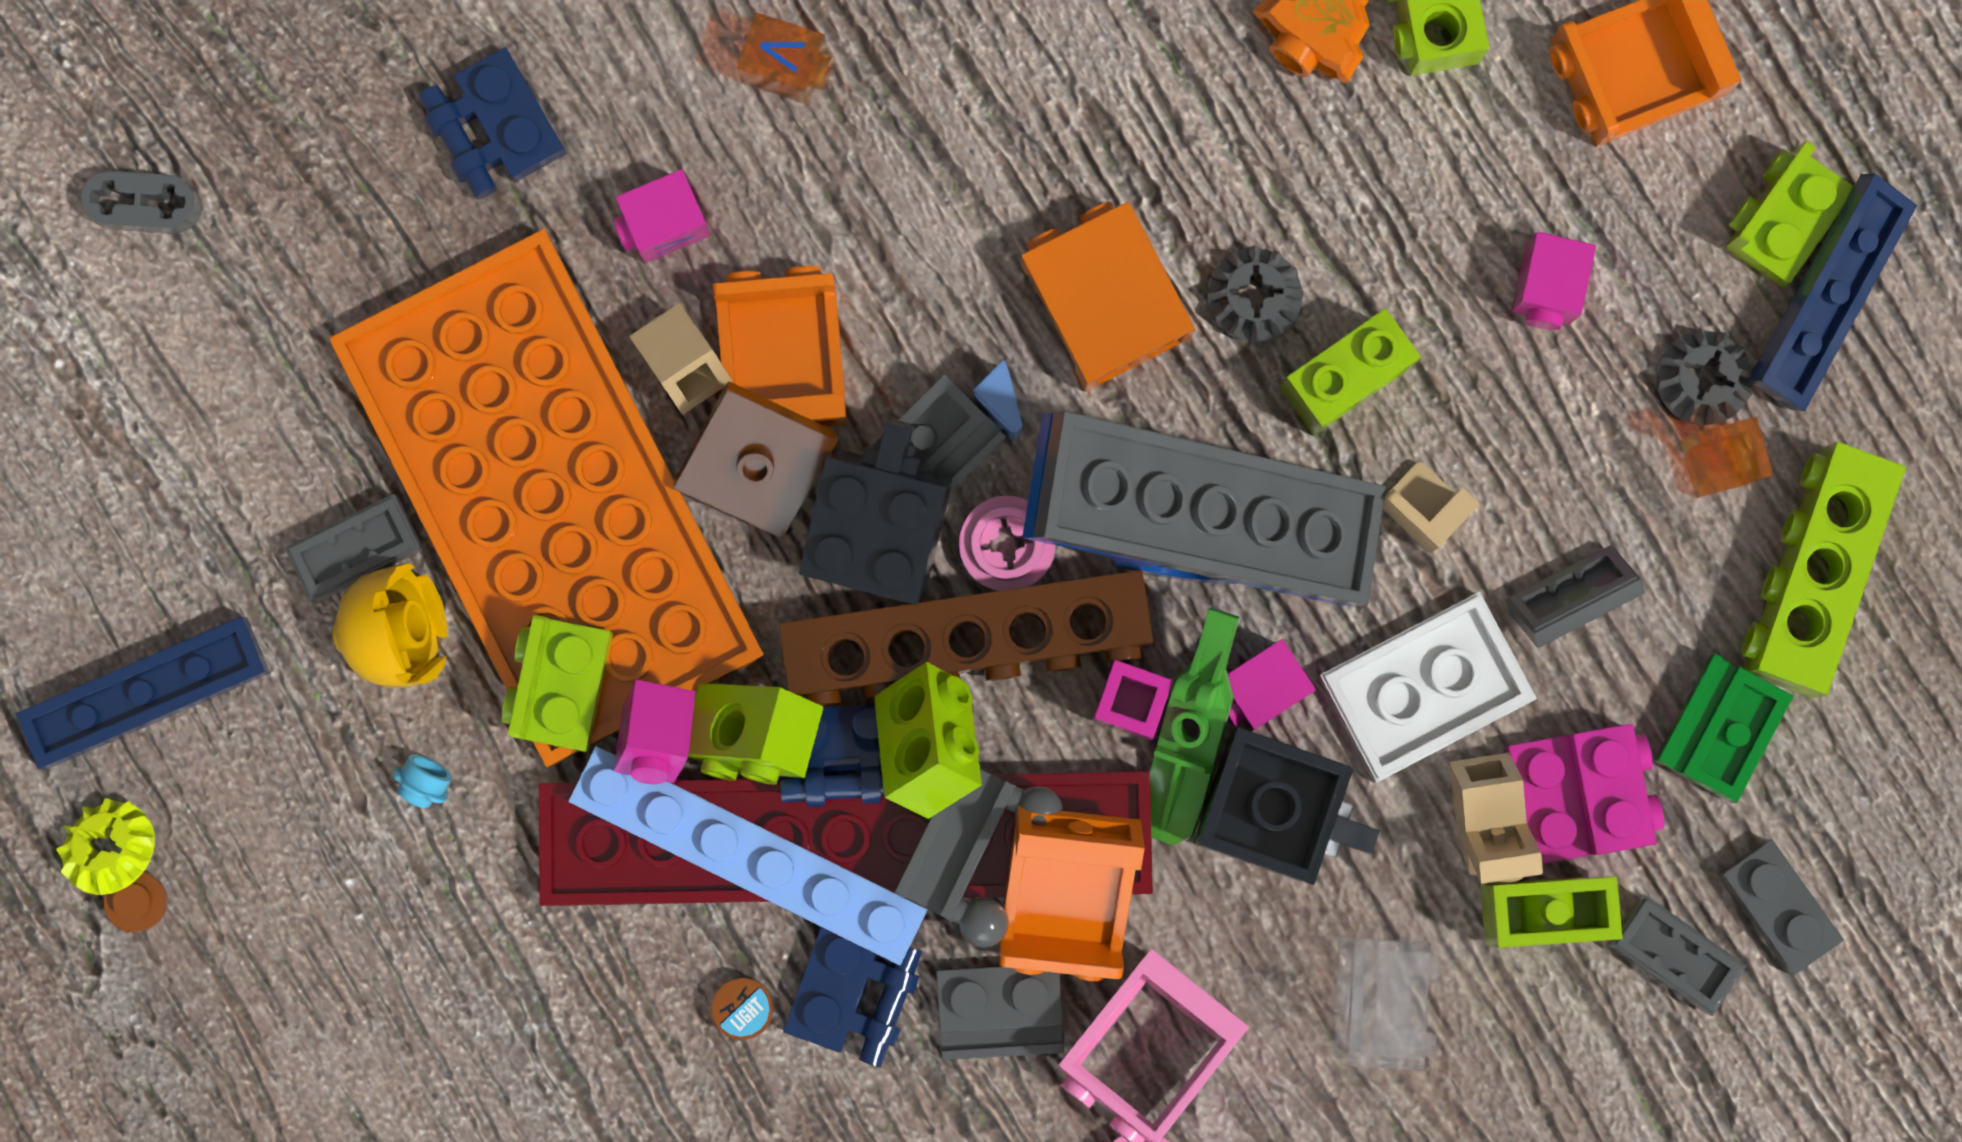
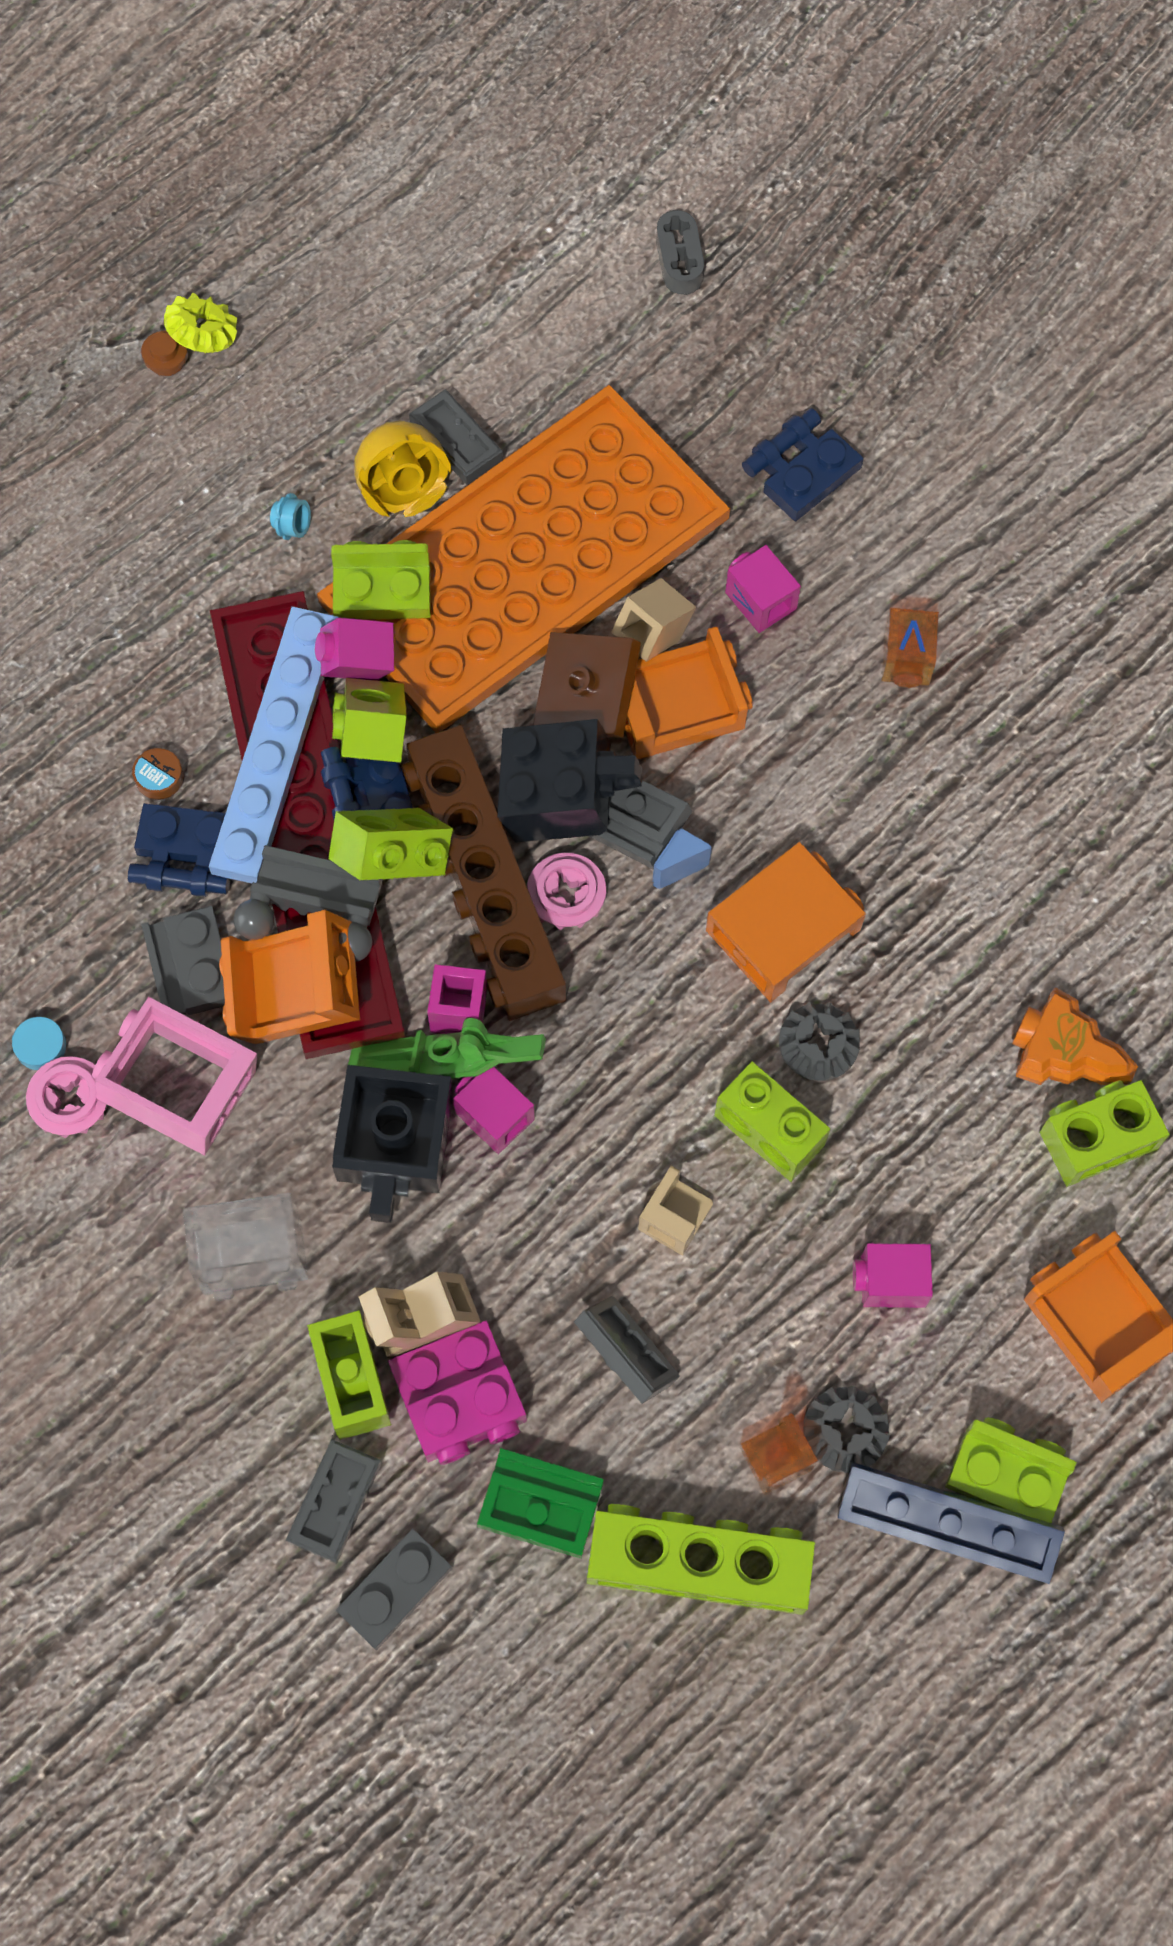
camera: 80 degrees right, 15 degrees down
(142, 693) = (318, 325): dark blue plate -> none
(1202, 511) = (622, 1011): dark grey piece -> none
(1427, 687) = (523, 1247): white tile -> none

